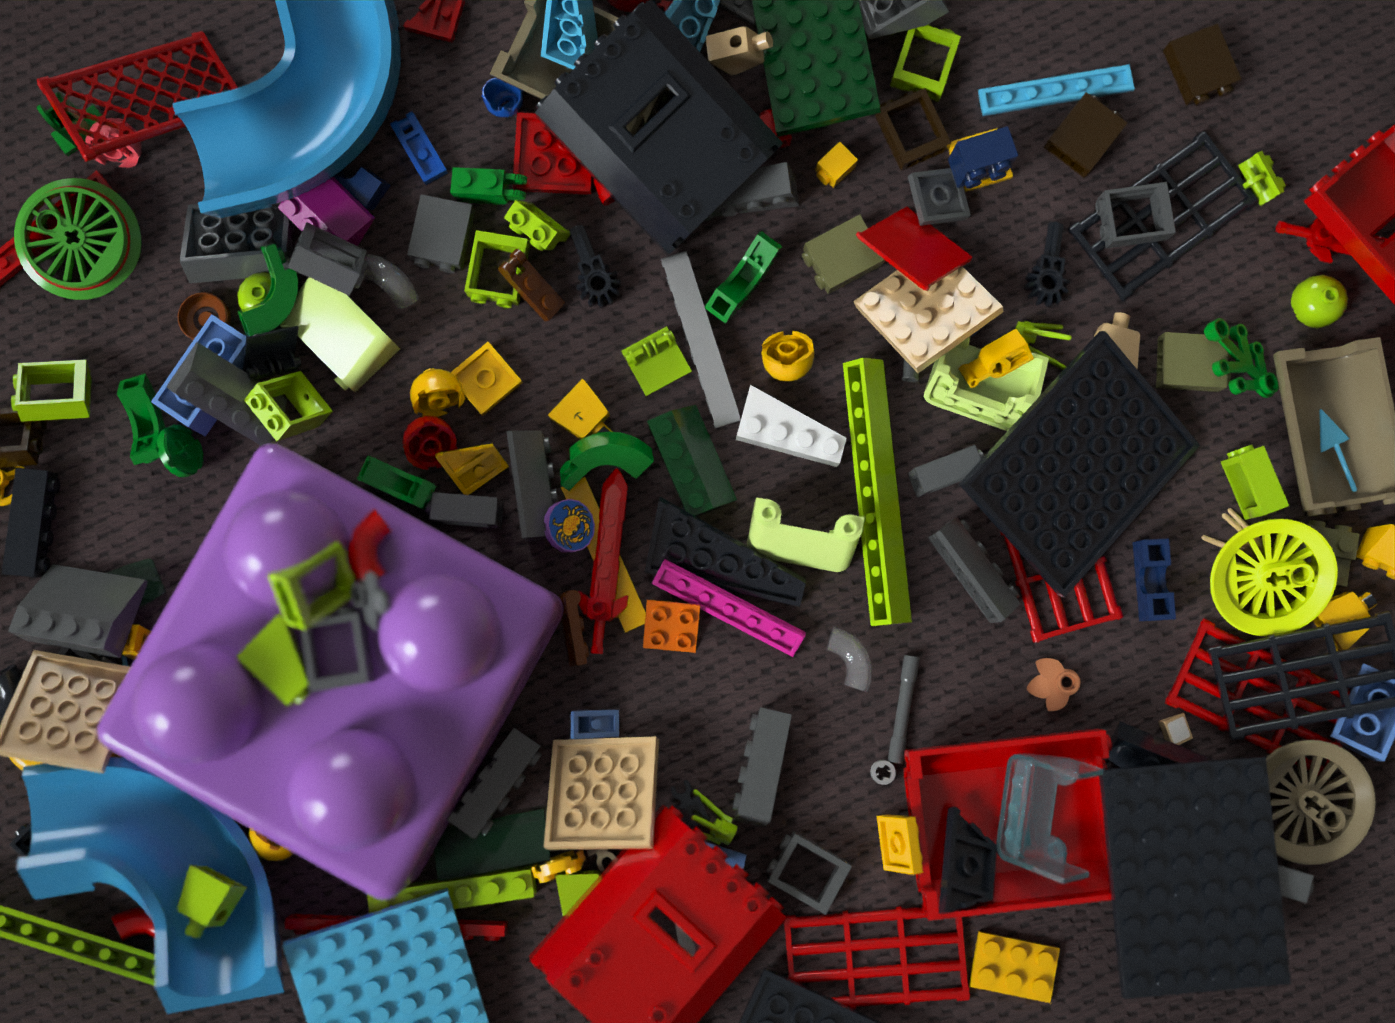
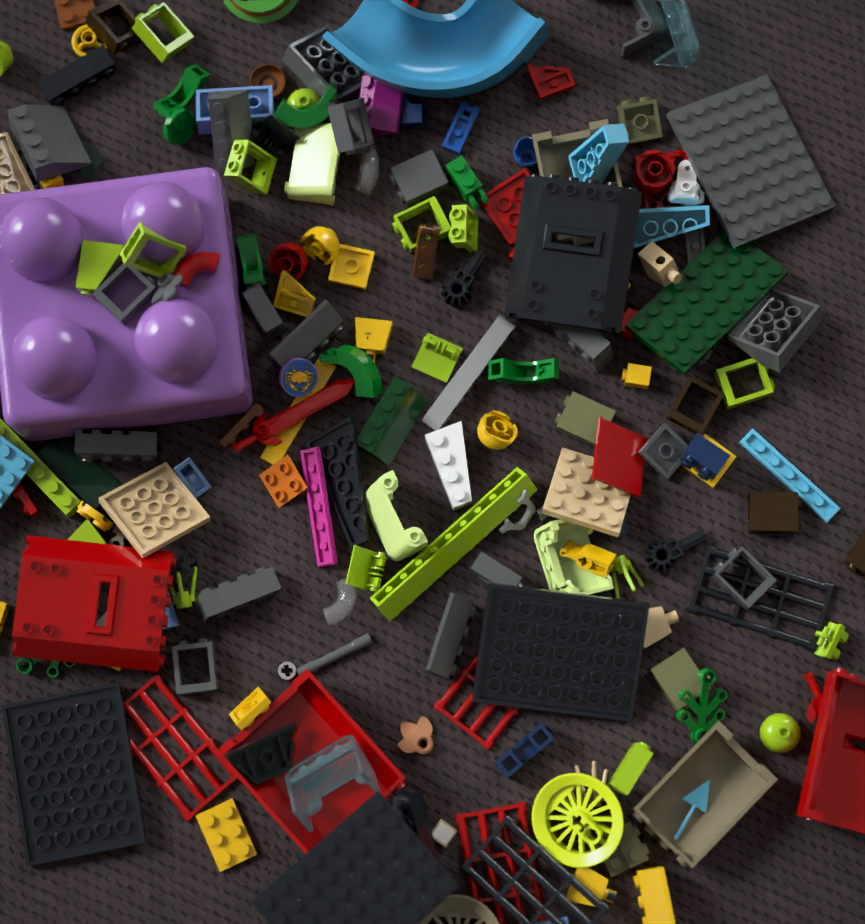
camera: 60 degrees right, 5 degrees down
(836, 607) = (365, 569): none -> lime hinge
(905, 404) = (524, 499): none -> light grey helmet

